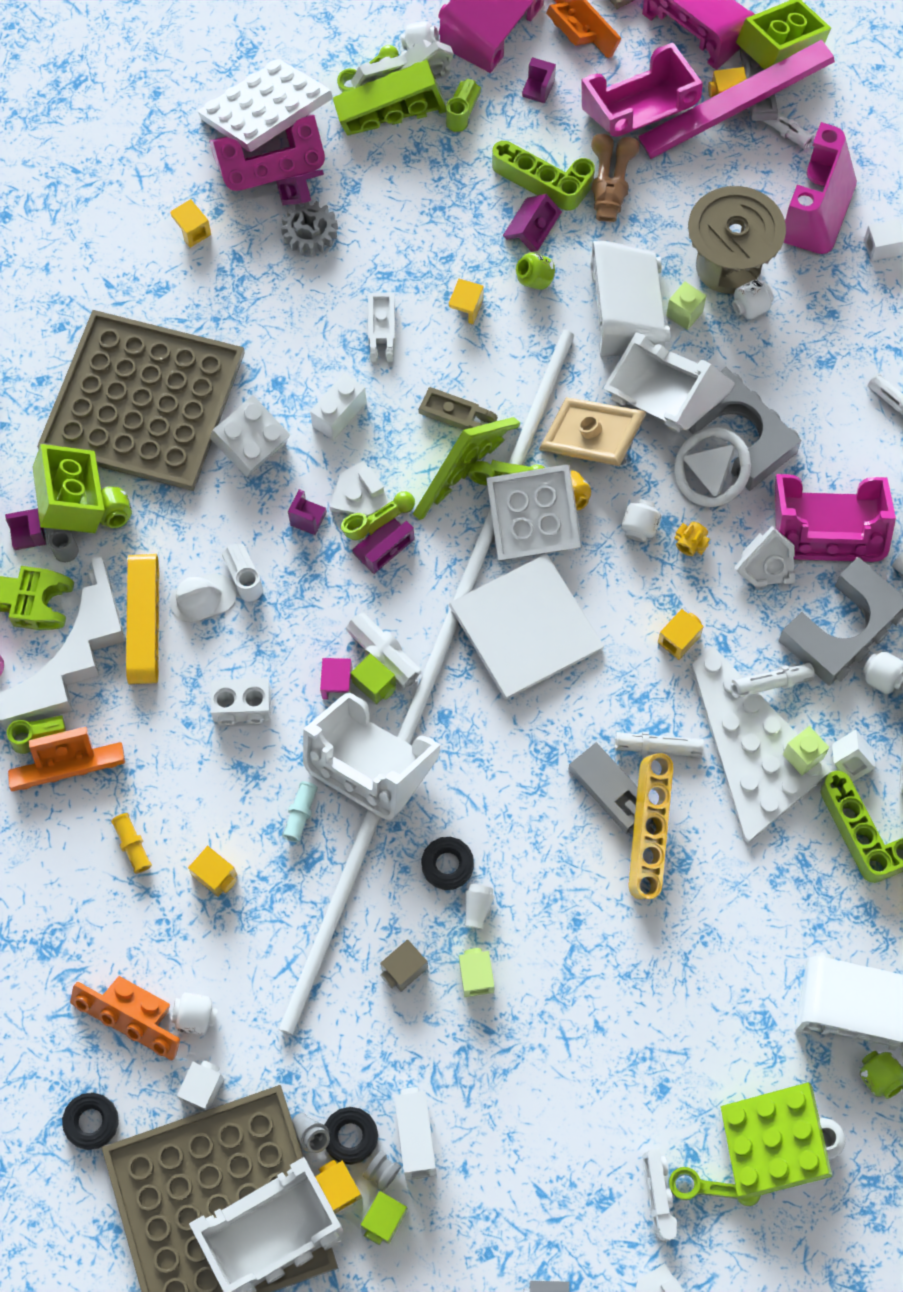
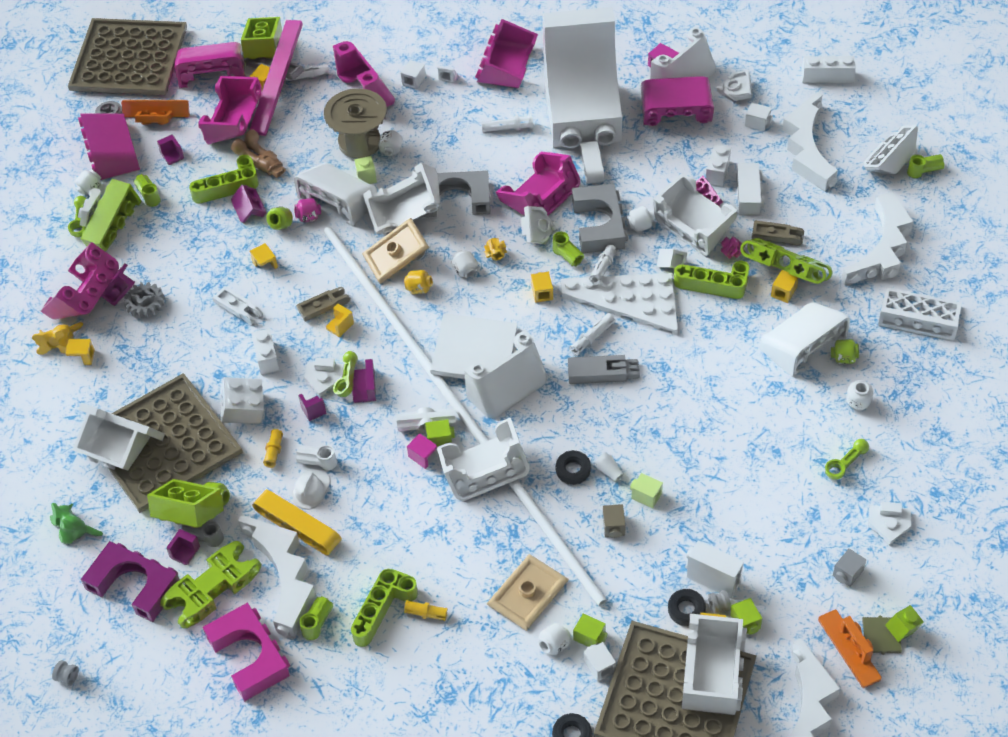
camera: 50 degrees left, 15 degrees down
(64, 757) = (342, 611): orange bracket -> none
(97, 347) = (112, 438): none -> white windscreen
(97, 793) = (380, 607): none -> lime beam
(130, 1012) = (526, 673): orange bracket -> none
(190, 184) = (55, 338): none -> yellow animal
(213, 871) = (480, 578): yellow brick -> none
(220, 517) = (273, 448): none -> yellow pin
(231, 1047) = (589, 631): none -> lime brick
(239, 936) = (527, 592): none -> tan piece
(241, 692) = (389, 501): white brick -> none
(265, 104) = (49, 269): white plate -> none
(299, 811) = (482, 516): light aqua pin -> none
(312, 1135) = (672, 620): light grey cone -> none
(437, 54) = (104, 179): white plate -> none
(441, 448) = (342, 321): none -> yellow panel
(470, 446) = (355, 306): lime tile -> none
(483, 470) = (371, 312): lime piece -> none
(505, 702) = (508, 381): none -> white windscreen
(534, 512) = (416, 301): white plate -> none
(574, 290) = (307, 210): none -> dark pink head
(641, 837) = (636, 360): yellow beam -> none
(659, 1197) = (832, 484): white hinge -> none
(712, 467) = (465, 215): white piece -> none
(761, 621) = (565, 248): none -> lime piece
(775, 1141) = (845, 412): lime plate -> none
(805, 750) = (654, 271): yellowish green brick -> none

